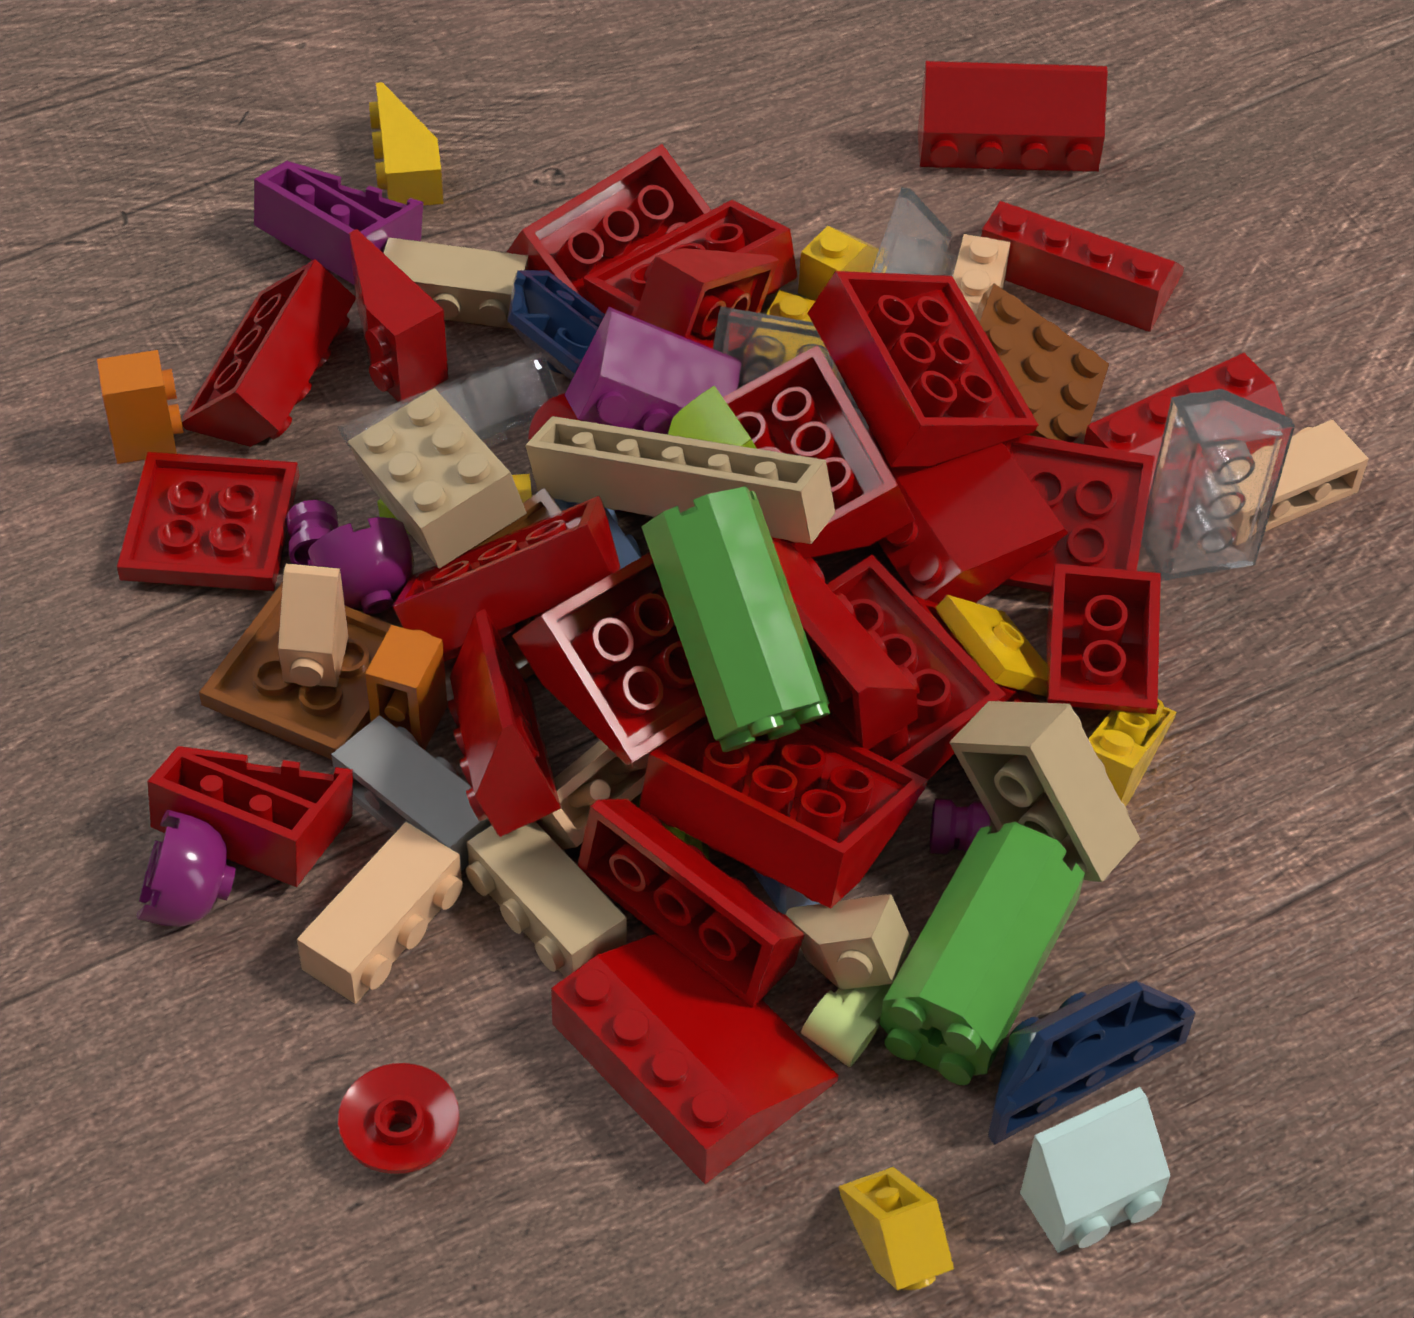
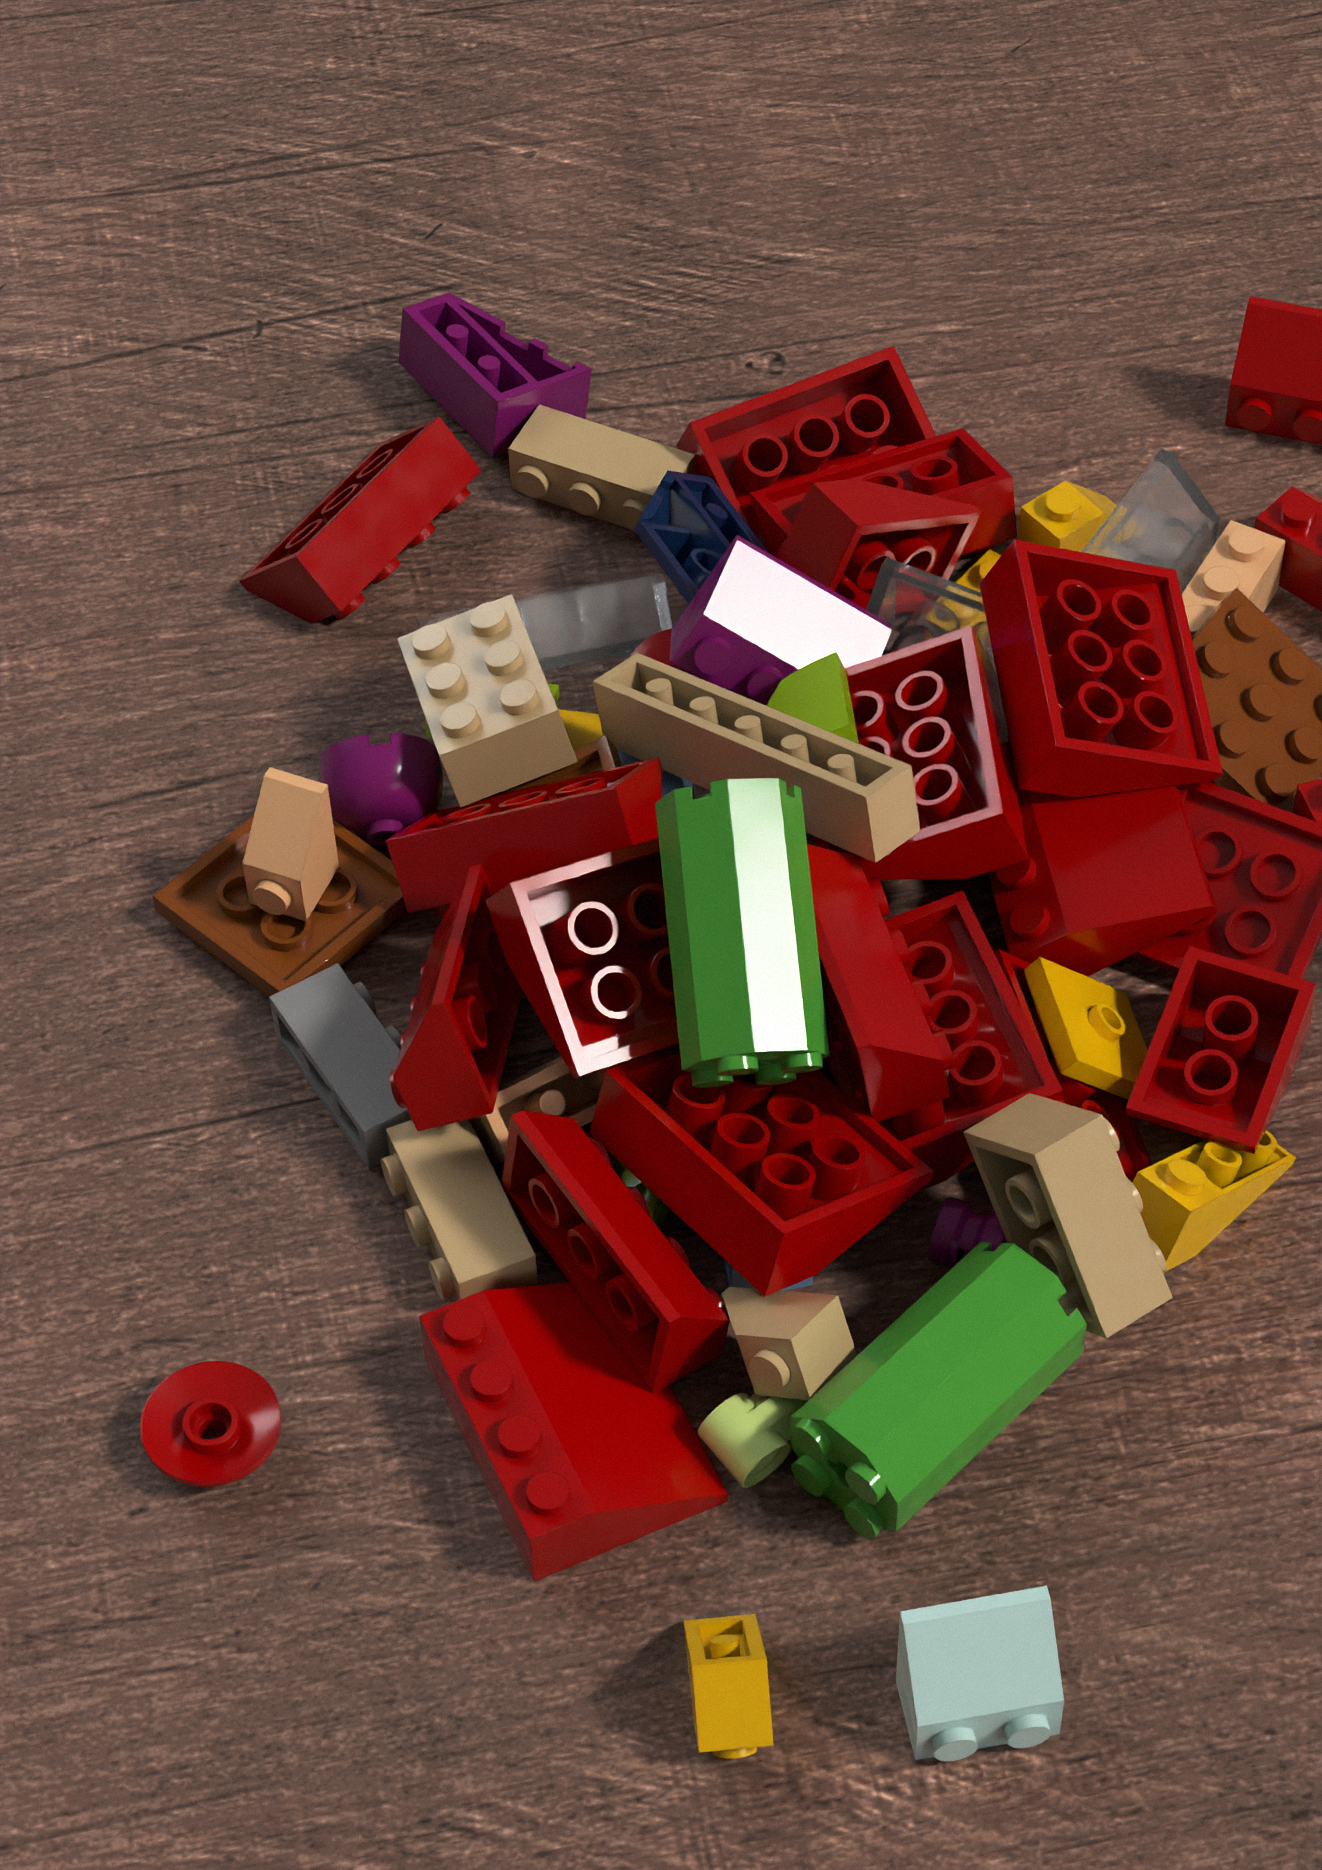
camera: 20 degrees right, 0 degrees up
(137, 405) = (189, 553): orange brick -> none
(185, 873) = (68, 1096): magenta cylinder -> none
(209, 521) = (231, 700): red plate -> none
(265, 814) = (162, 1045): red wedge -> none
(306, 524) = (336, 722): magenta wheel -> none
(381, 913) = (270, 1189): light nougat brick -> none
(398, 323) = (513, 511): red slope -> none
(408, 152) = (600, 305): yellow slope -> none
(408, 682) = (380, 934): orange brick -> none
(1083, 1049) = (1019, 1533): dark blue wedge -> none

